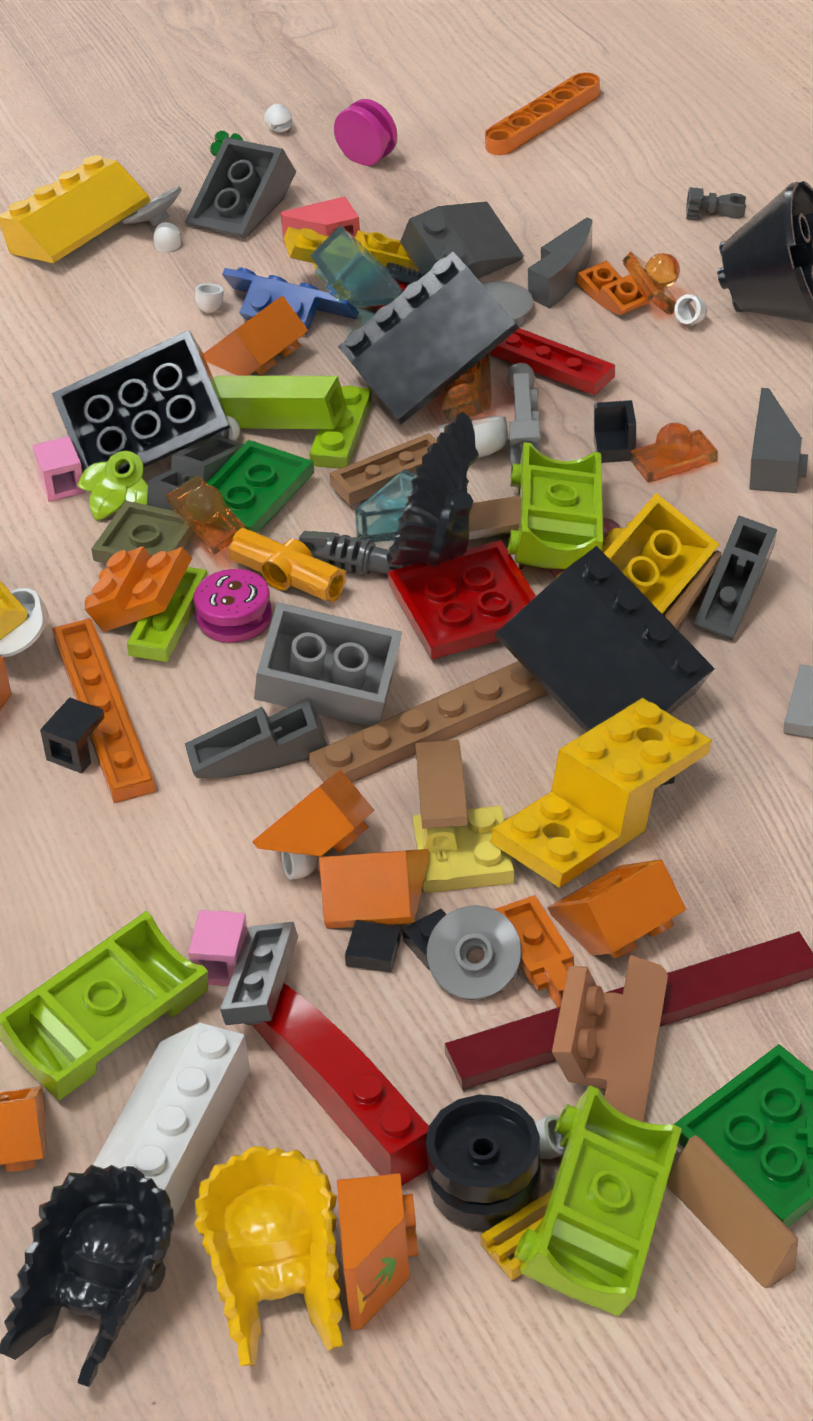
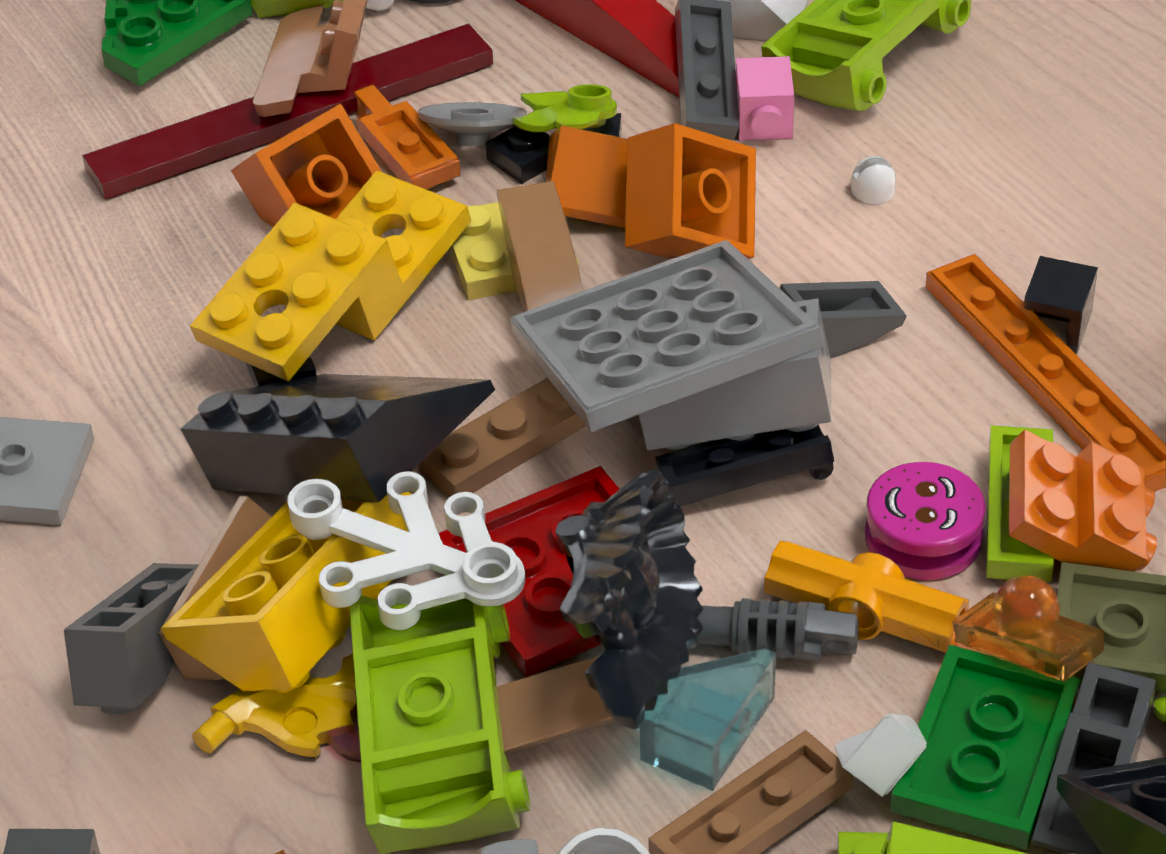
camera: 170 degrees right, 0 degrees up
(158, 875) = (873, 181): none -> white hinge
(311, 473) = (882, 753): none -> white slope
(370, 671) = (664, 334): none -> light grey tile
(402, 930) = (578, 108): none -> lime plate
(519, 513) = (484, 575): none -> white plant

